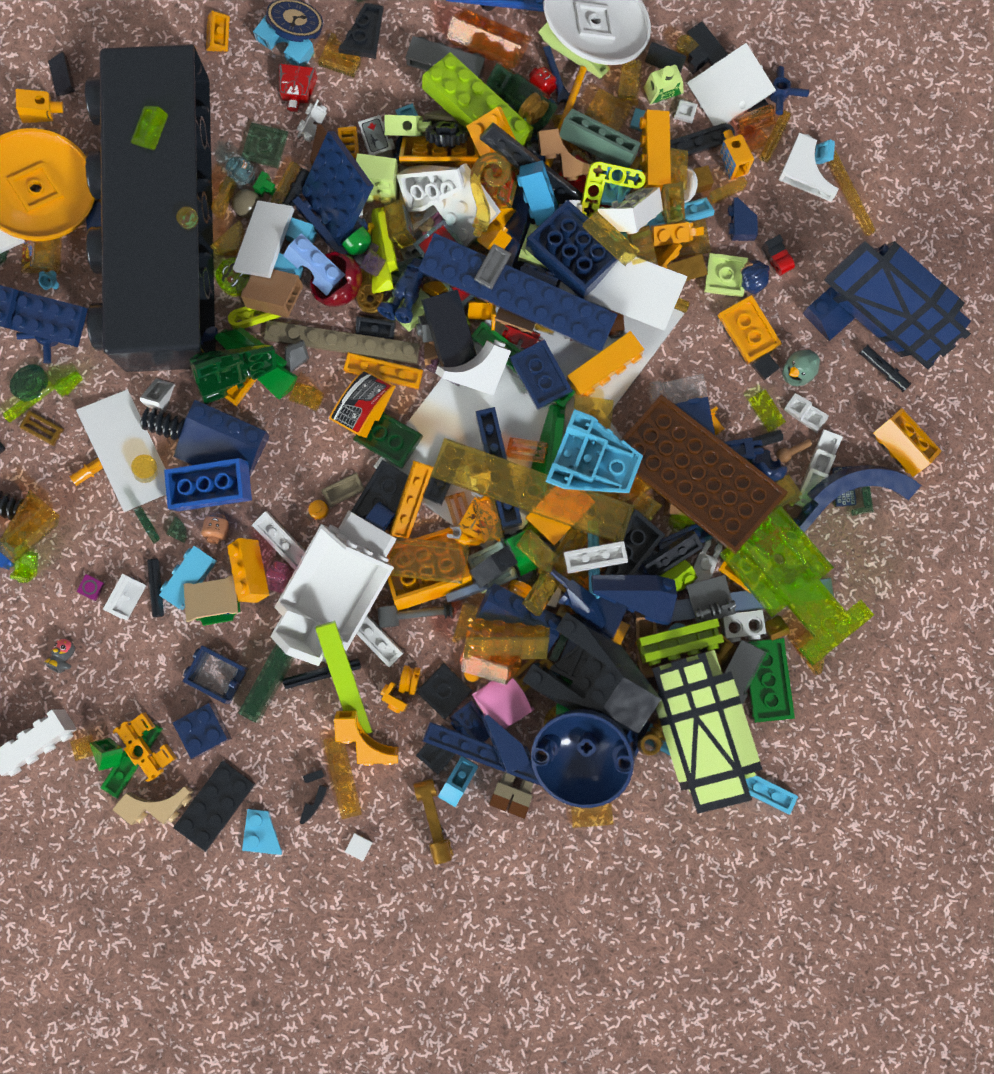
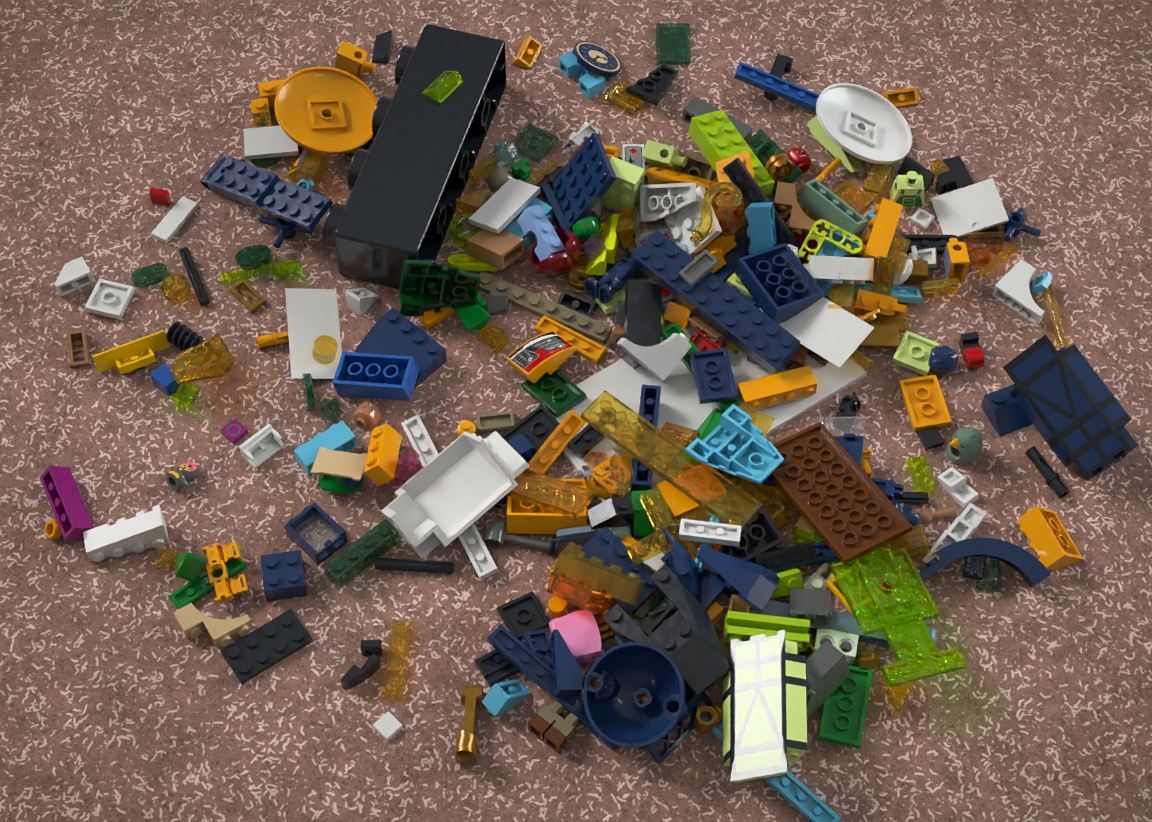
camera: 20 degrees right, 25 degrees down
(154, 587) = (293, 443): black axle -> none
(162, 425) = (355, 319): black piece -> none
(187, 217) = (447, 156): clear yellow tile -> none
(260, 833) = (299, 684): medium azure wing -> none
(296, 84) = (580, 106): red torso -> none
(342, 672) = (433, 568): lime tile -> none
(367, 749) = (421, 611): light orange arch -> none
(394, 703) = (473, 602): light orange bracket -> none
(409, 679) = (494, 592): light orange wheel -> none
(446, 134) = (696, 168): black gear -> none
(488, 38) = (760, 115): clear orange slope -> none
(562, 93) = (811, 151): dark blue piece -> none
(592, 816) = (626, 772): clear yellow tile -> none
(611, 238) = (814, 280): clear yellow tile -> none
(680, 358) = (849, 406): none -> black hinge
(702, 158) = (925, 254): none -> white bracket
(743, 222) = (946, 317): dark blue slope -> none

